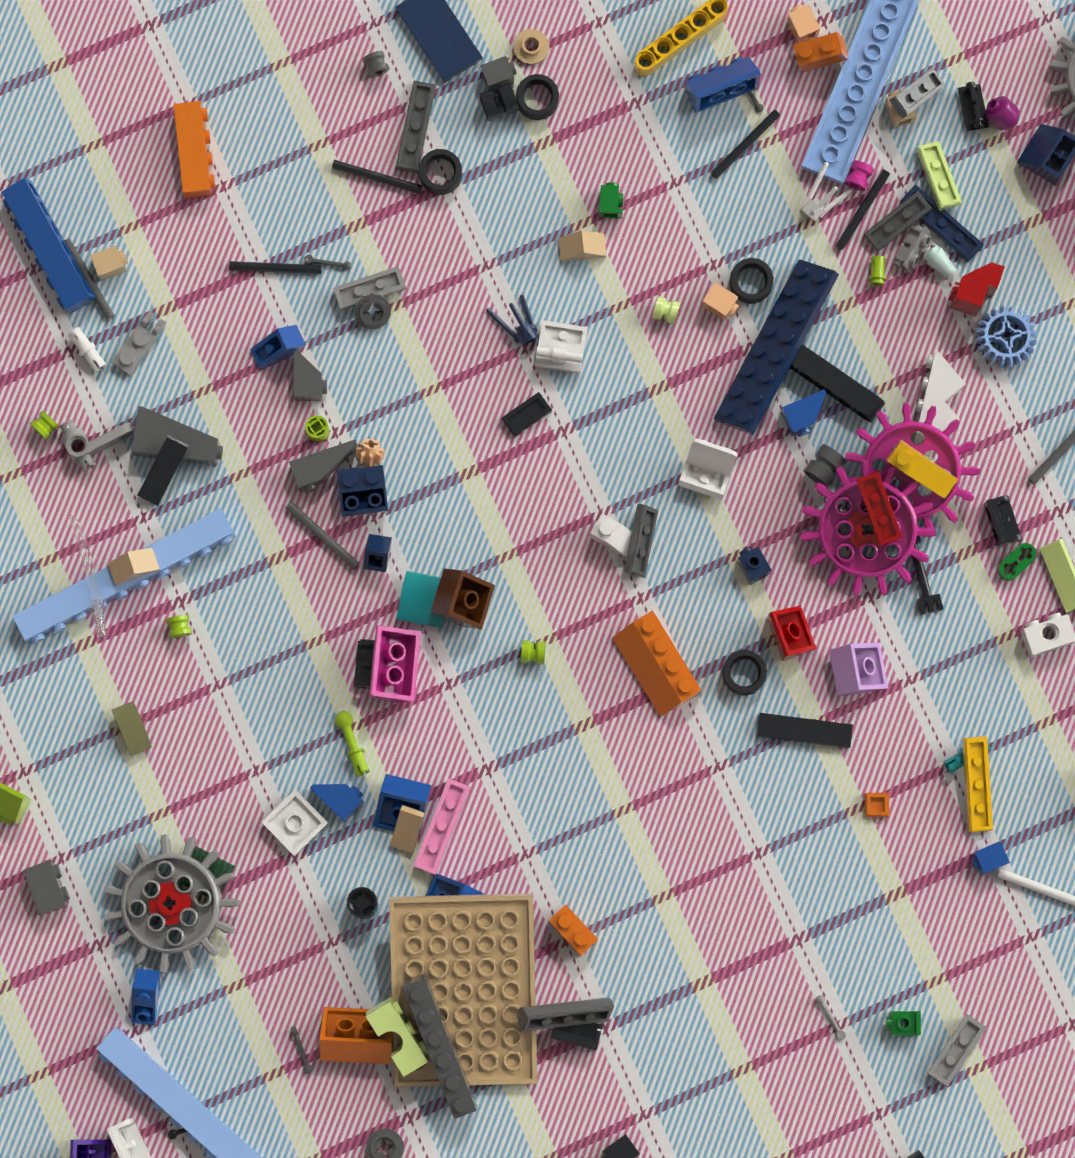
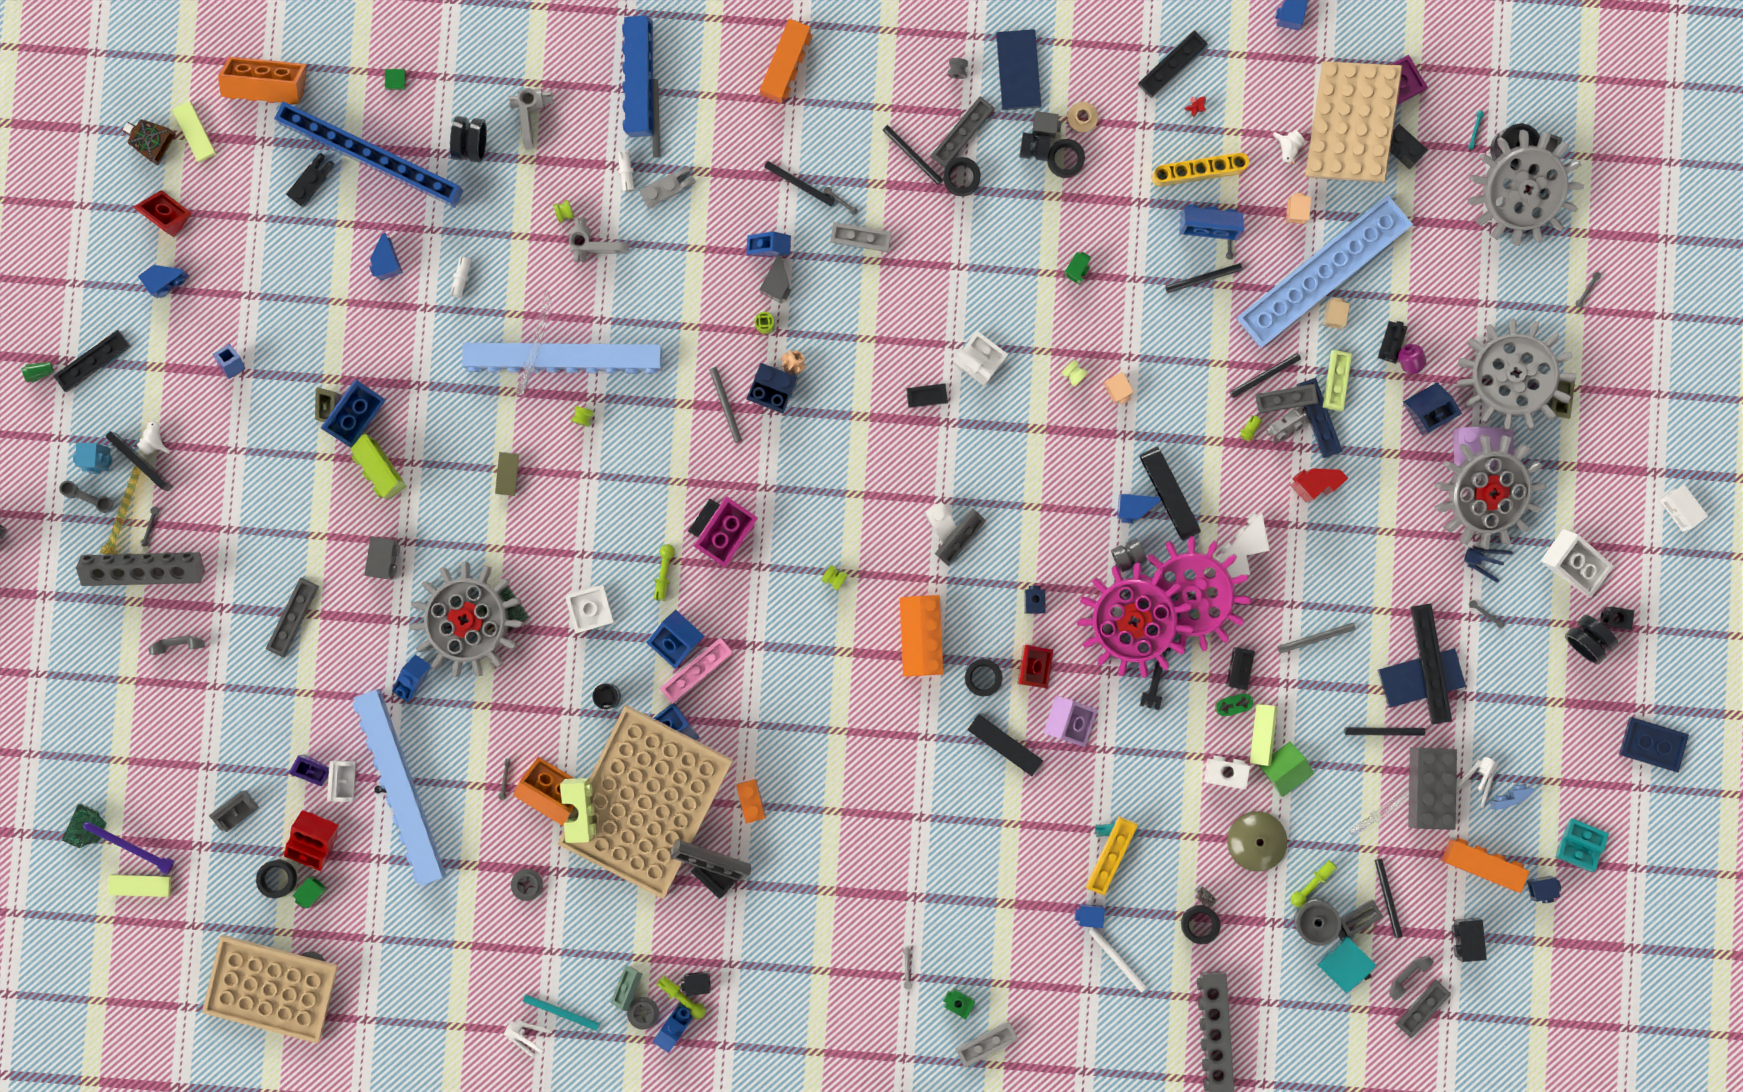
camera: 30 degrees right, 5 degrees up
(109, 262) = (677, 114): tan brick -> none
(133, 565) = (571, 353): tan slope -> none
(153, 429) = (650, 272): dark grey slope -> none
(162, 470) = (632, 292): black tile -> none
(317, 467) = (748, 352): dark grey slope -> none
(339, 798) = (631, 609): blue slope -> none
(377, 553) = (758, 440): dark blue brick -> none
(380, 317) = (845, 258): dark grey gear -> none
(407, 829) = (669, 659): tan tile -> none
(418, 598) = (775, 493): teal slope -> none
(439, 1045) = (604, 834): dark grey brick -> none
(462, 598) = (802, 509): reddish brown brick -> none
(525, 332) = (959, 333): dark blue plant -> none
(582, 246) = (1038, 290): tan slope -> none
(707, 468) = (1039, 510): white bracket -> none
(751, 263) = (1151, 399): black tyre -> none
(776, 346) = (1142, 445): dark blue plate -> none
(816, 208) = (1231, 356): white plant -> none
(820, 51) = (1299, 238): orange brick -> none
(858, 177) = (1276, 348): dark pink wheel -> none
(876, 804) = (1028, 829): orange tile -> none
(879, 508) = (1151, 611): red plate -> none
(917, 92) = (1356, 308): tile -> none
(921, 469) = (1199, 598): yellow slope -> none
(939, 261) = (1301, 445): light aqua cone -> none
(1007, 355) = (1324, 524): light blue gear -> none

